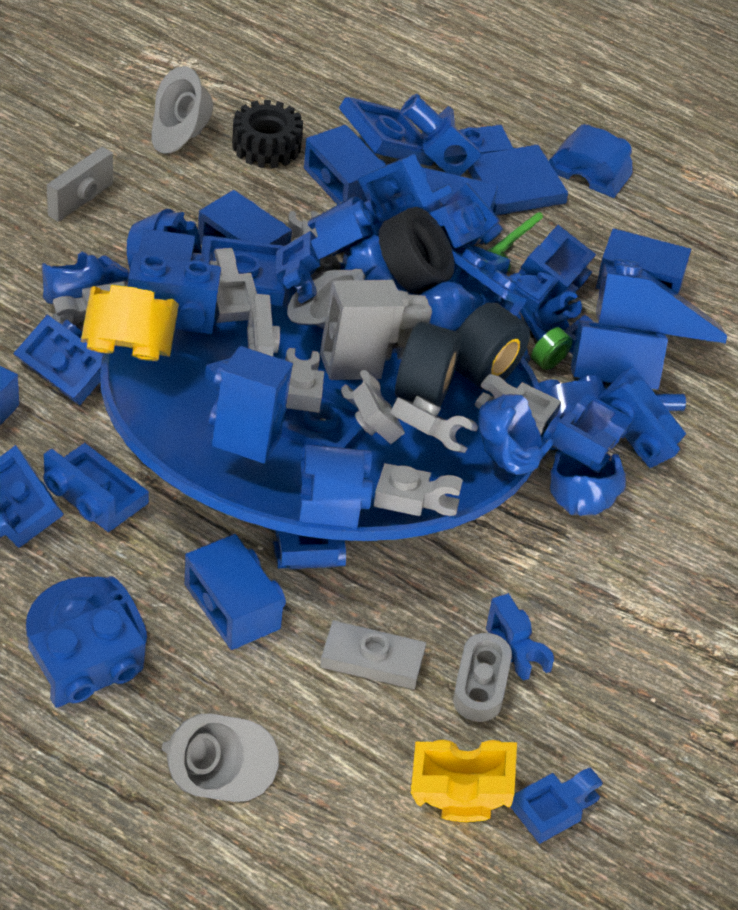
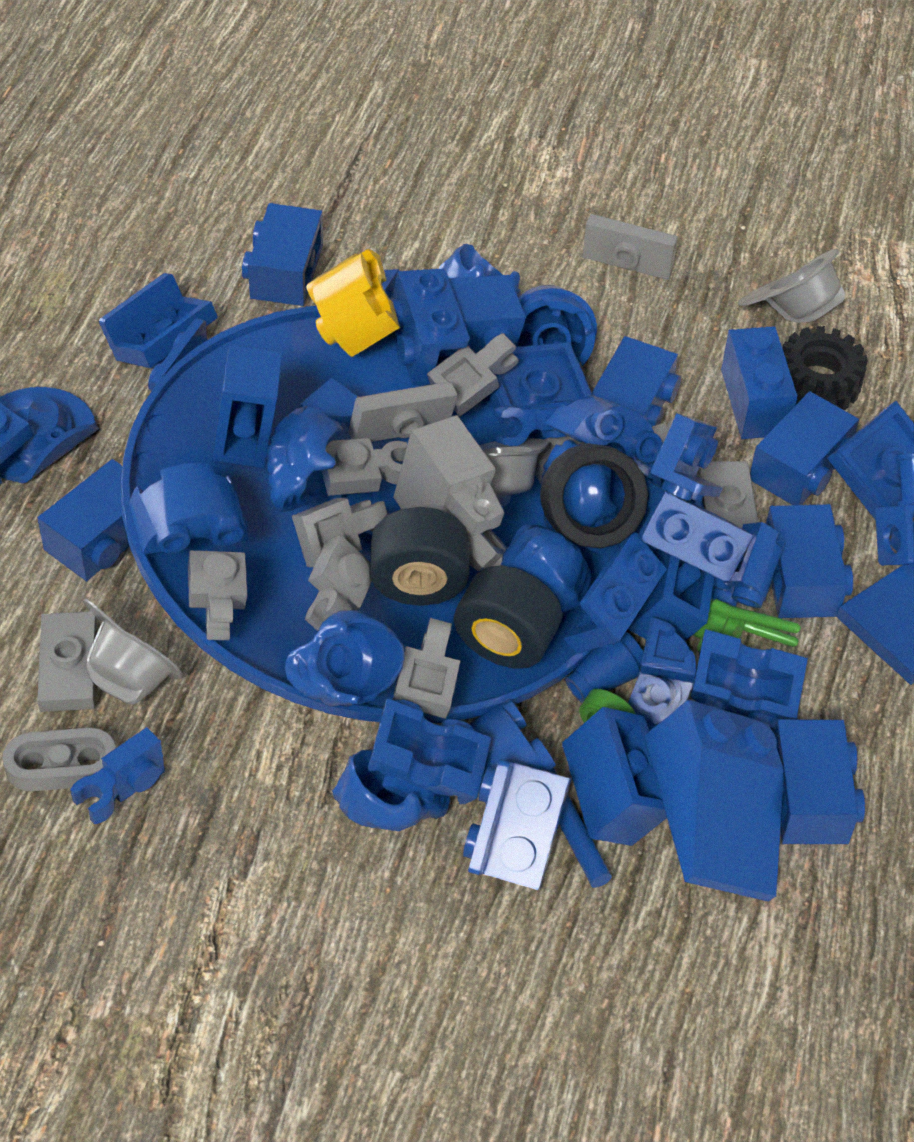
camera: 75 degrees right, 5 degrees up
(270, 165) = (757, 380): none -> blue brick
(316, 398) = (295, 453): none -> blue hair
(401, 606) = (125, 663): none -> light grey piece

